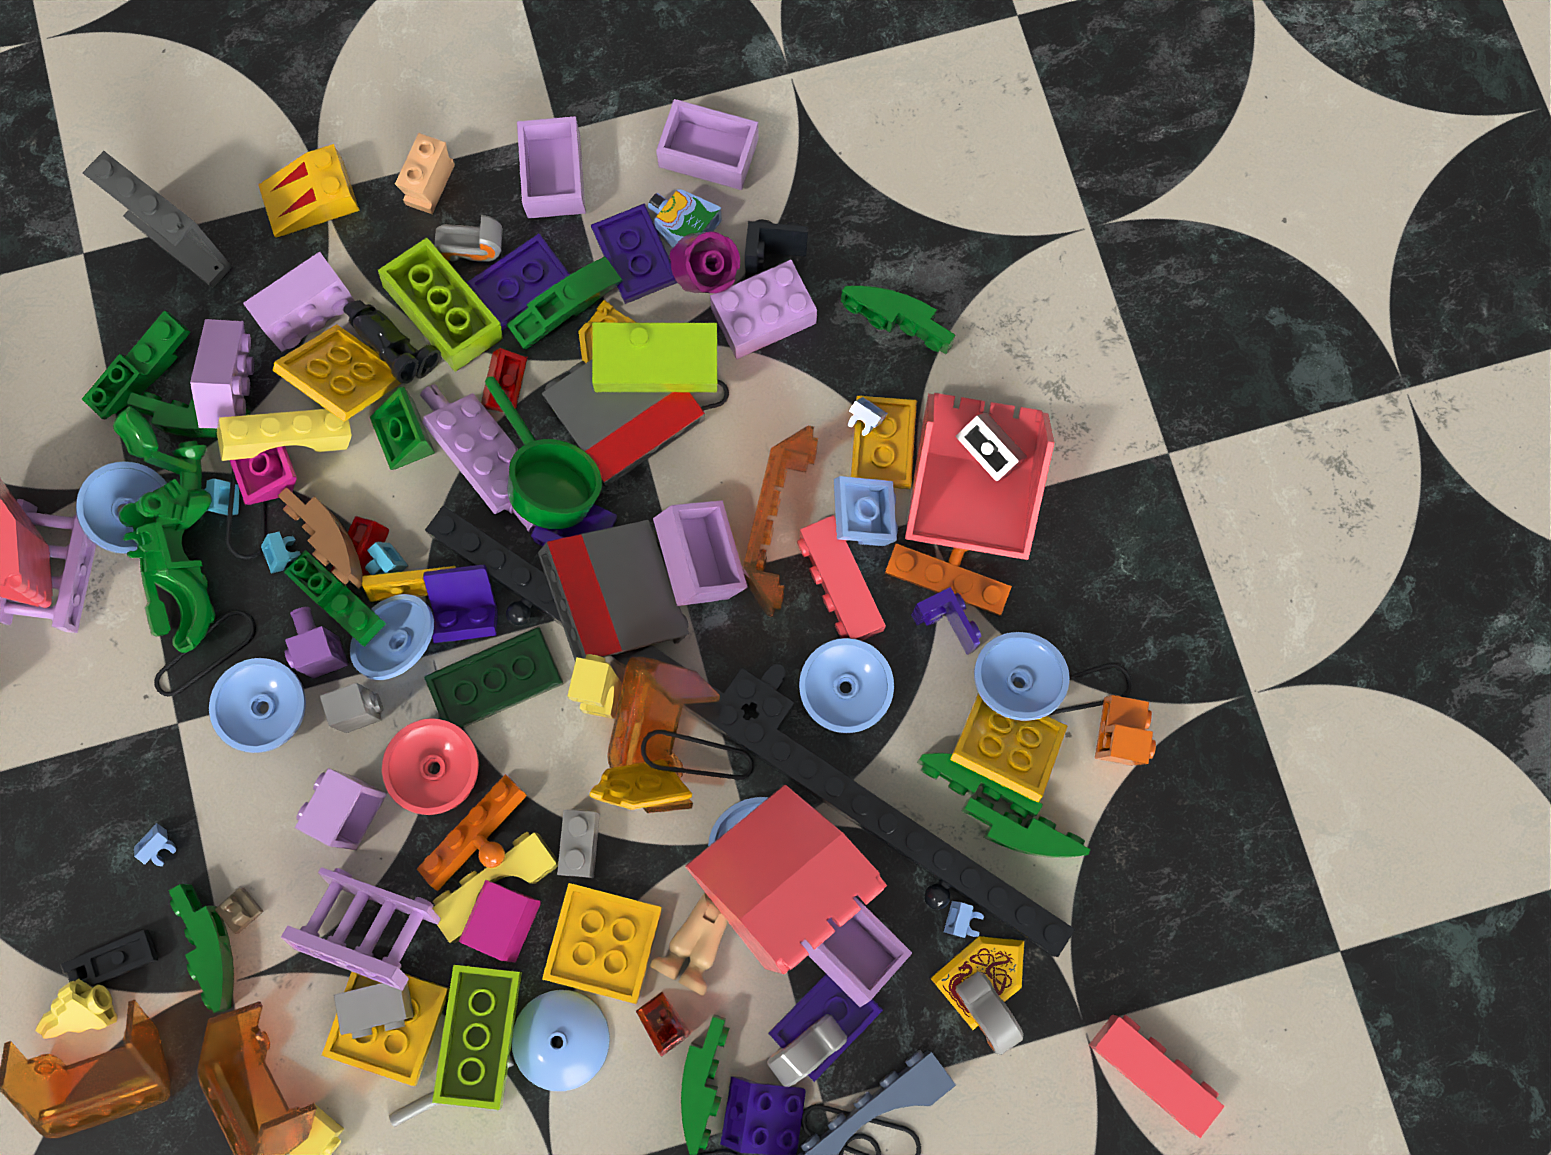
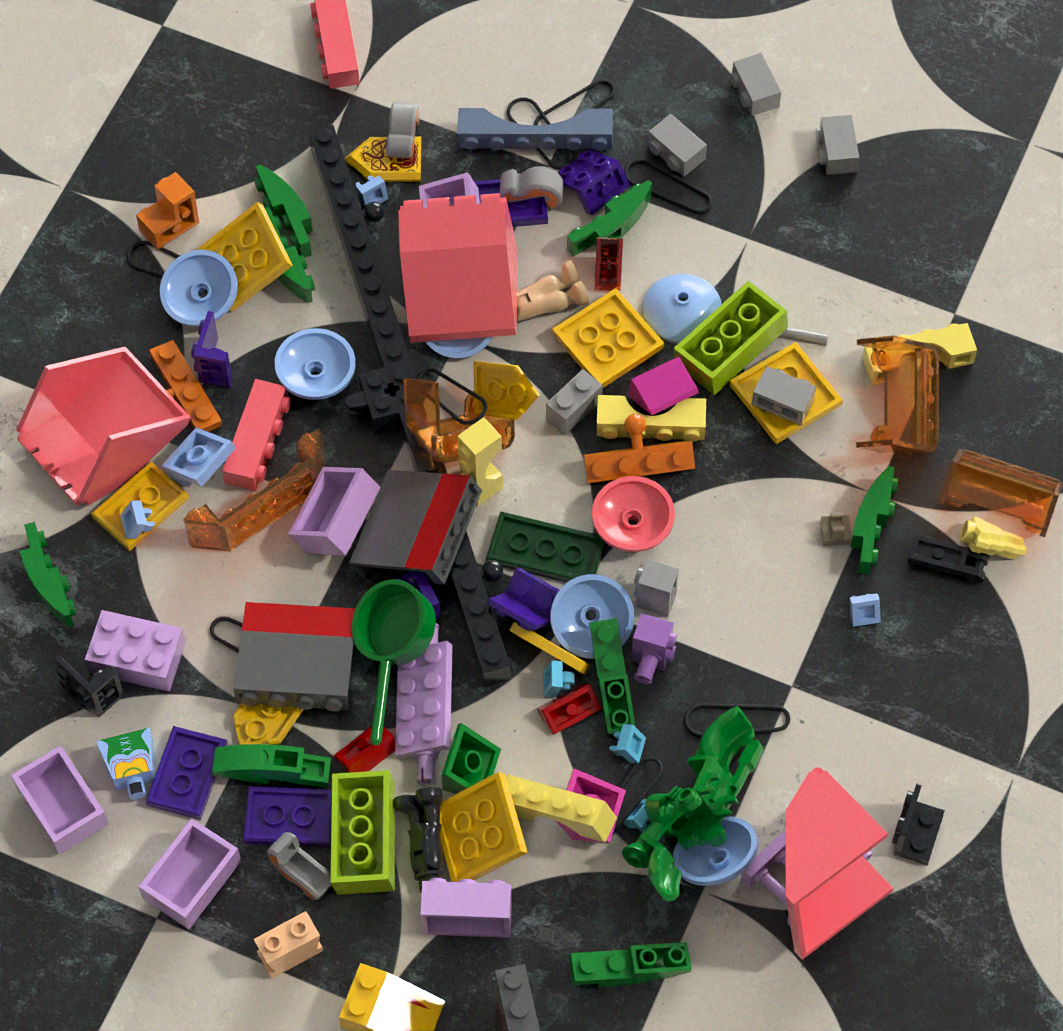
camera: 140 degrees left, 15 degrees down
(171, 418) = (610, 885): green slope -> none
(221, 372) = (567, 882): lavender piece -> none
(238, 700) = (725, 625): light blue dish -> none
(327, 537) = (582, 711): medium nougat slope -> none
(339, 809) = (712, 519): lavender piece -> none
(361, 958) = (766, 419): lavender fence -> none
(654, 357) = (246, 649): lime brick -> none
(689, 263) = (147, 702): magenta brick -> none
(991, 446) = (76, 432): light grey brick -> none

